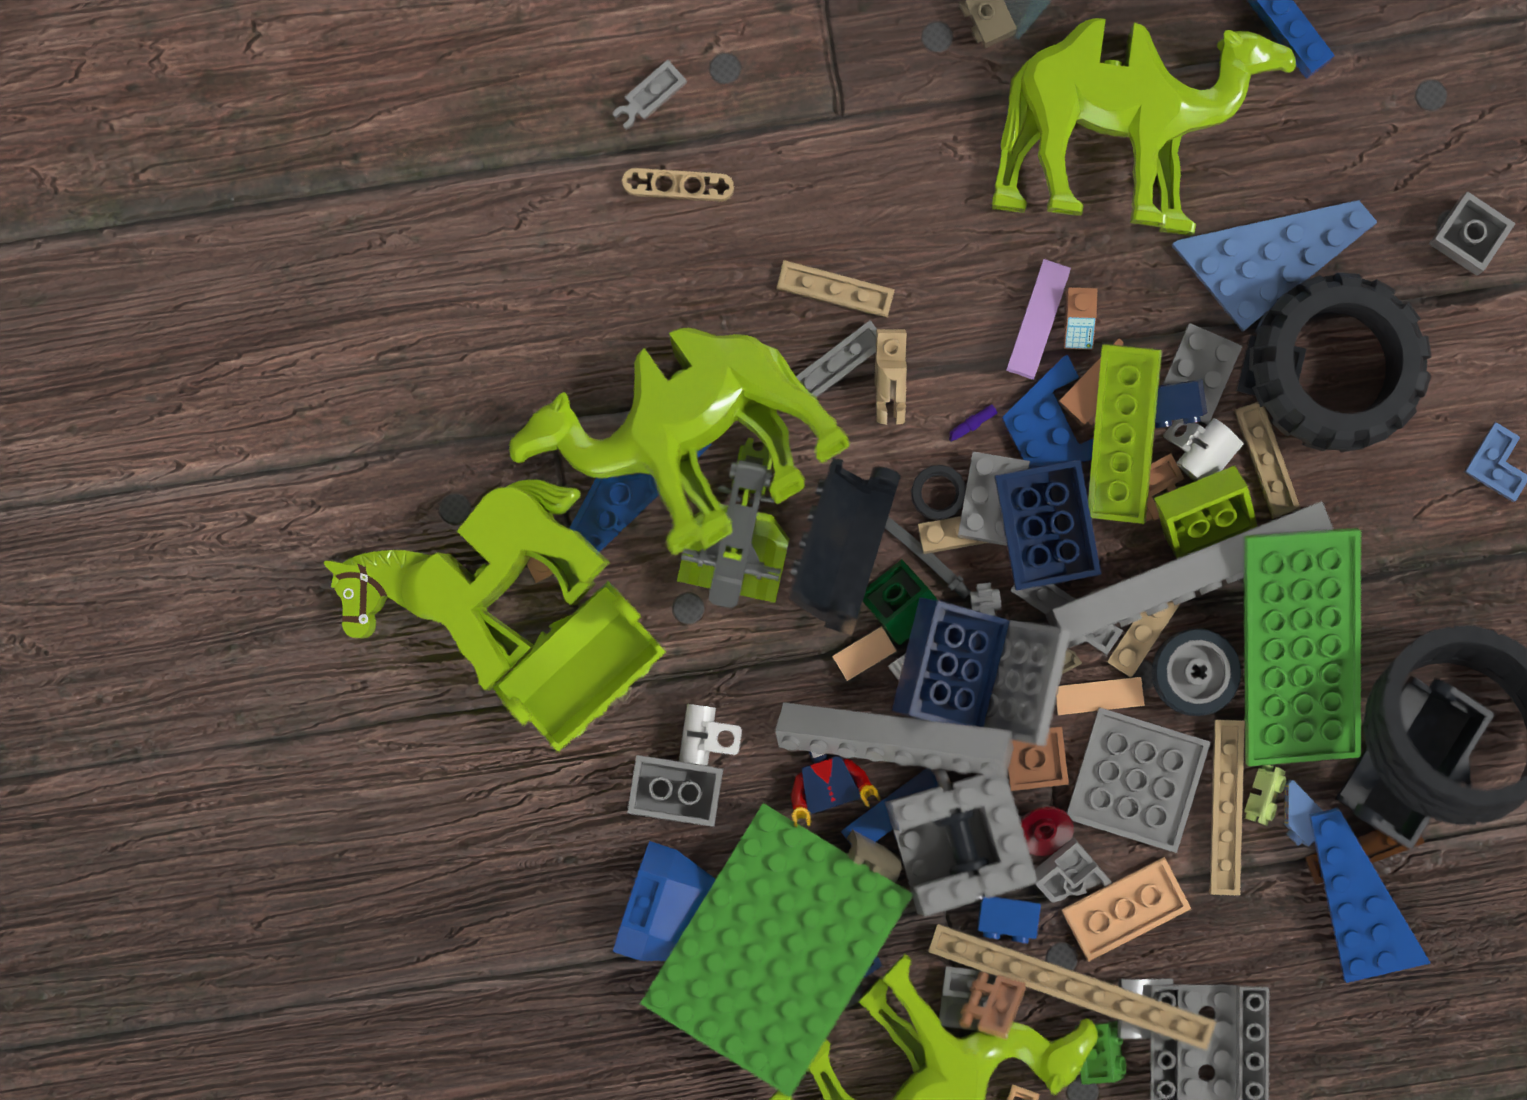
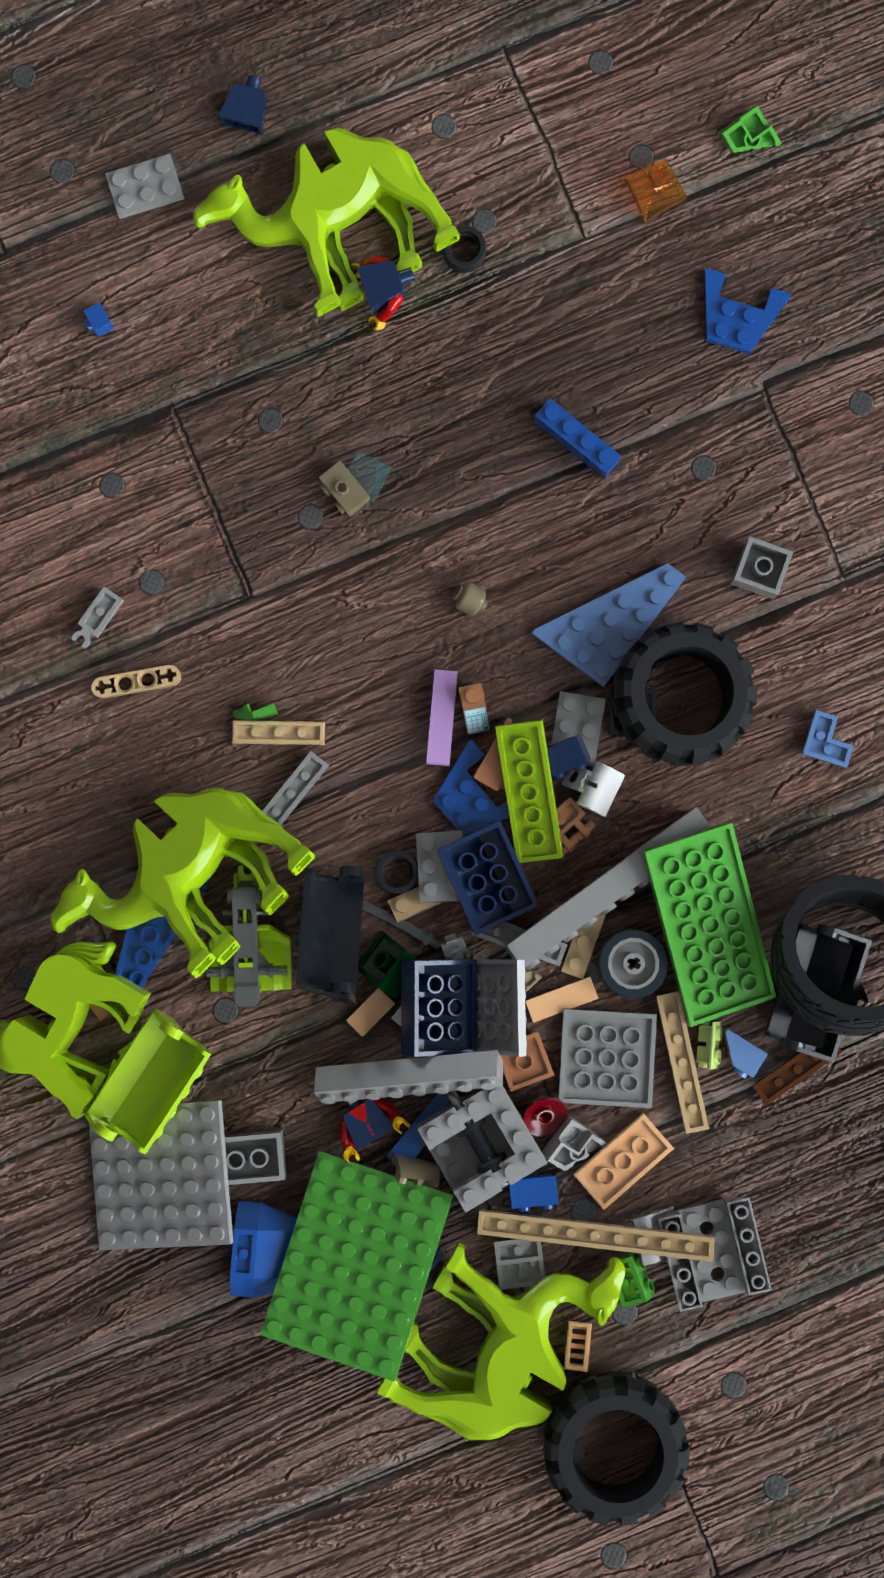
camera: 15 degrees left, 0 degrees up
(571, 807) = (170, 1194): none -> light grey plate
(701, 735) = (257, 1108): white piece -> none
(803, 257) = (247, 713): none -> bright green slope
(890, 373) = (337, 788): tan plate -> none
(972, 422) = (411, 810): dark purple piece -> none
(1000, 1008) = (544, 1265): nougat plate -> none
(1107, 183) = (470, 598): none -> dark tan head
(1133, 101) = (475, 529): lime animal -> none
(1206, 512) = (609, 836): lime brick -> none
(1267, 460) = (646, 783): tan tile -> none
(1364, 917) = (810, 1122): blue wing -> none

